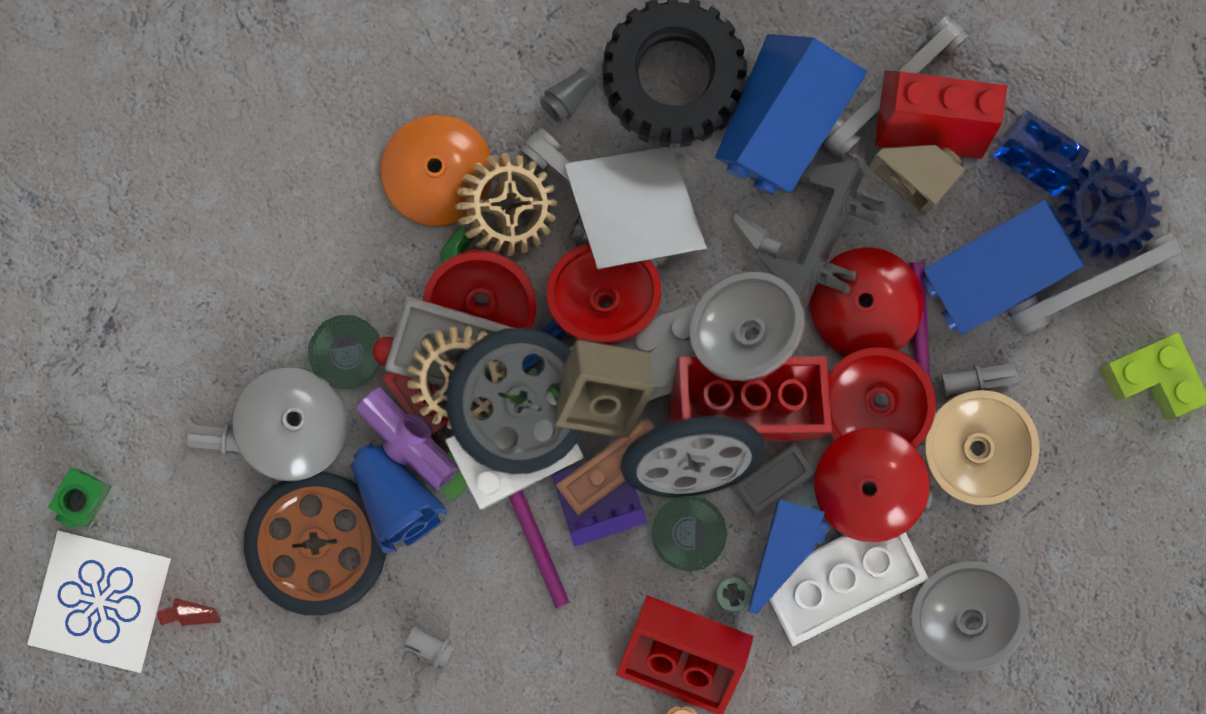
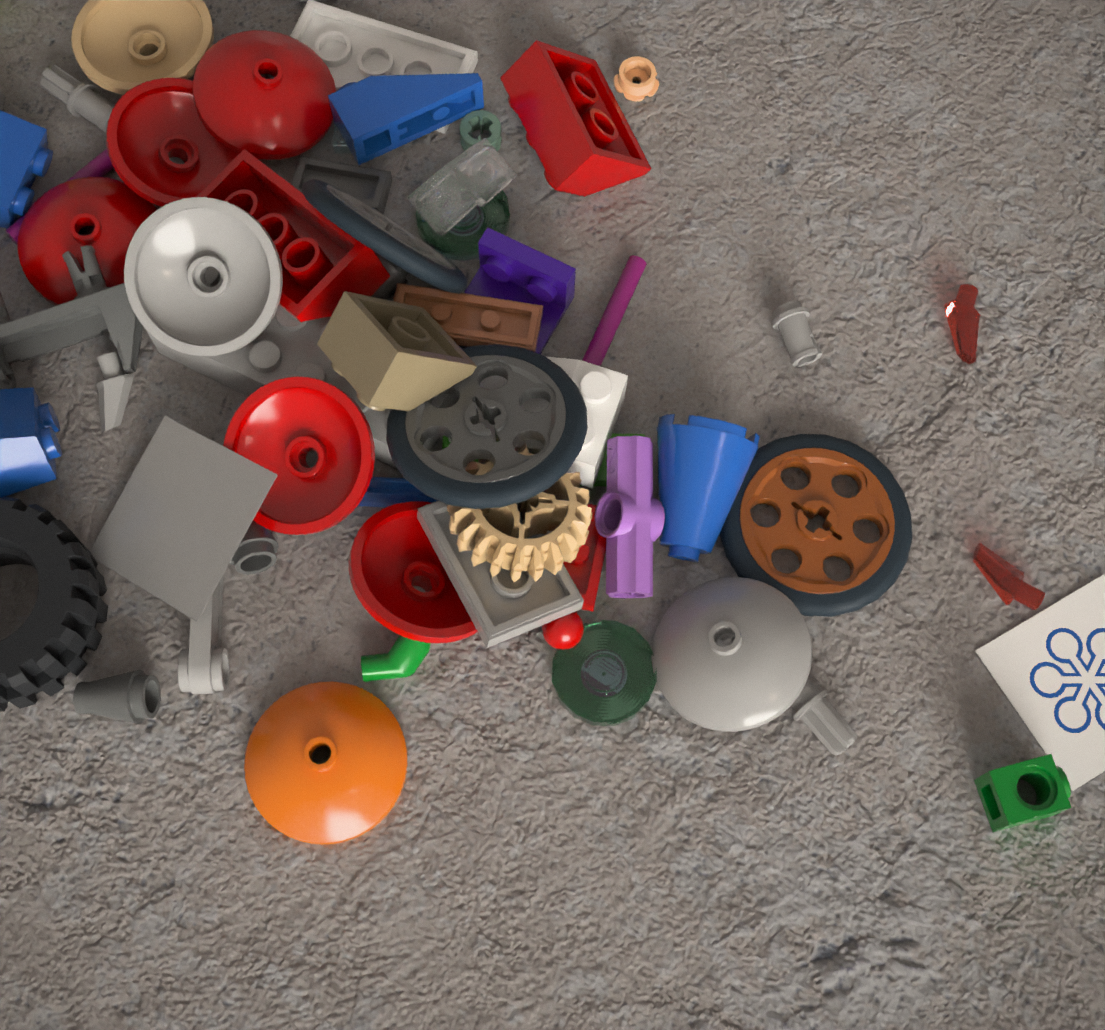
camera: 135 degrees left, 15 degrees down
(506, 188) = (280, 642): tan gear -> none
(696, 541) = (461, 185): none -> clear slope

